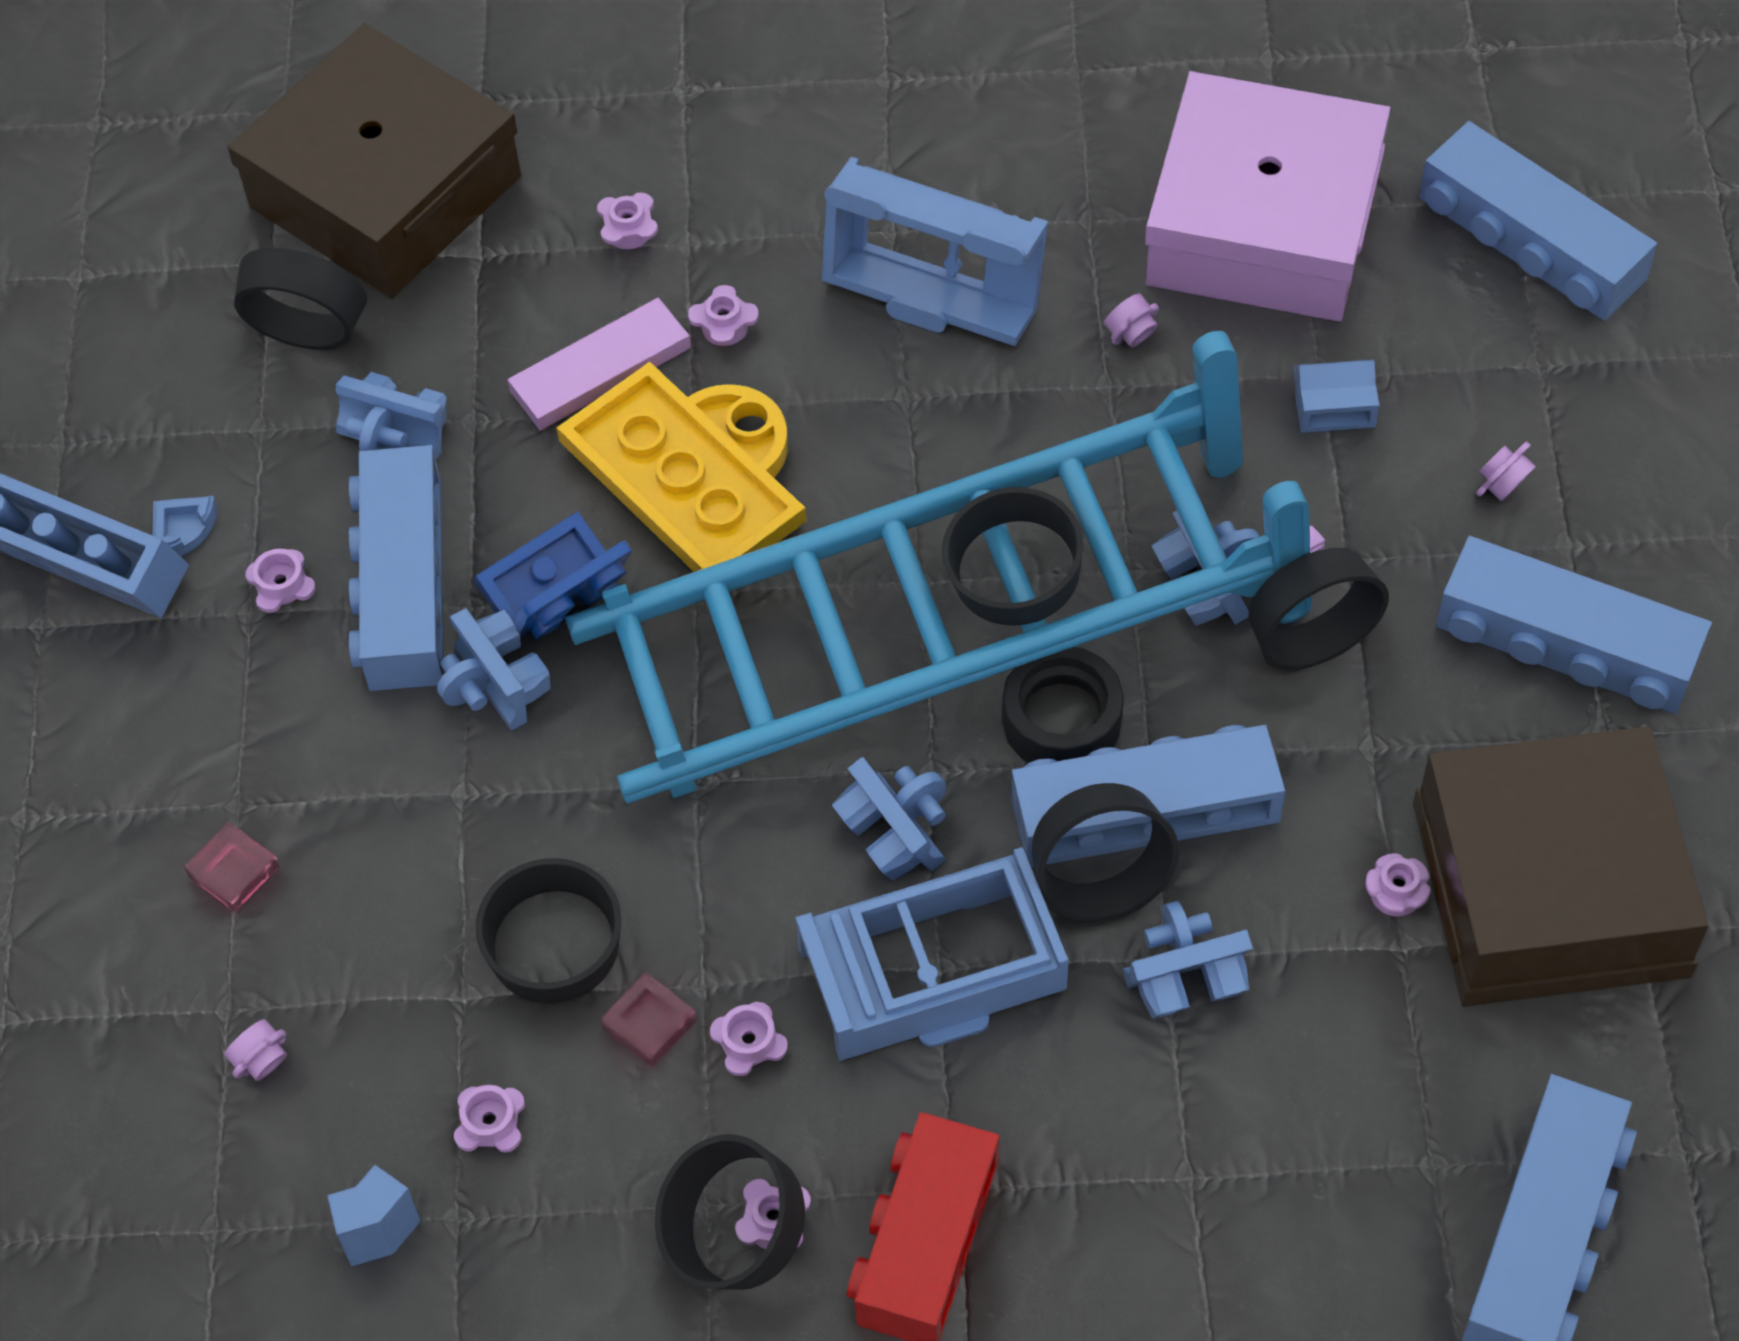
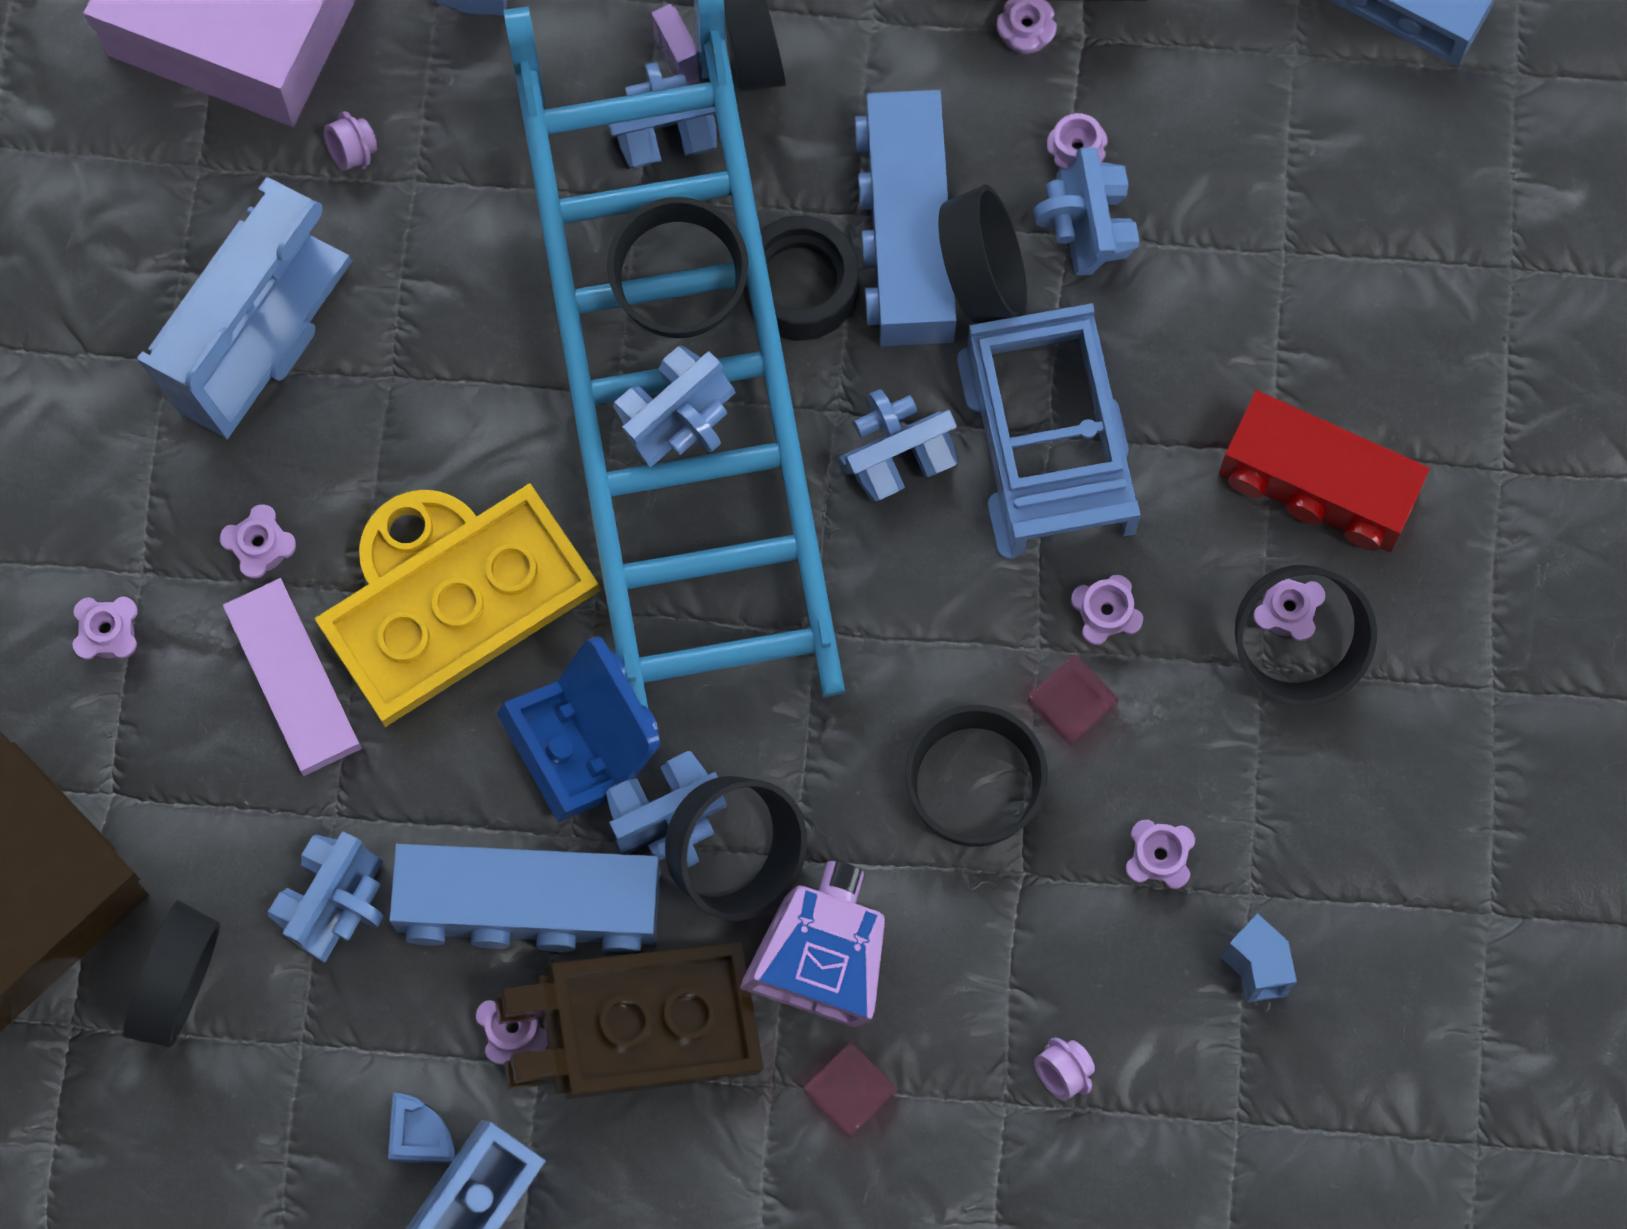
camera: 85 degrees left, 15 degrees up
(282, 672) = (637, 1022): none -> dark brown tile
(358, 811) = (822, 950): none -> torso
(399, 726) = (781, 865): none -> black tyre
(870, 585) = (681, 411): none -> medium blue hips
(1278, 935) = (1074, 129): none -> lavender plate

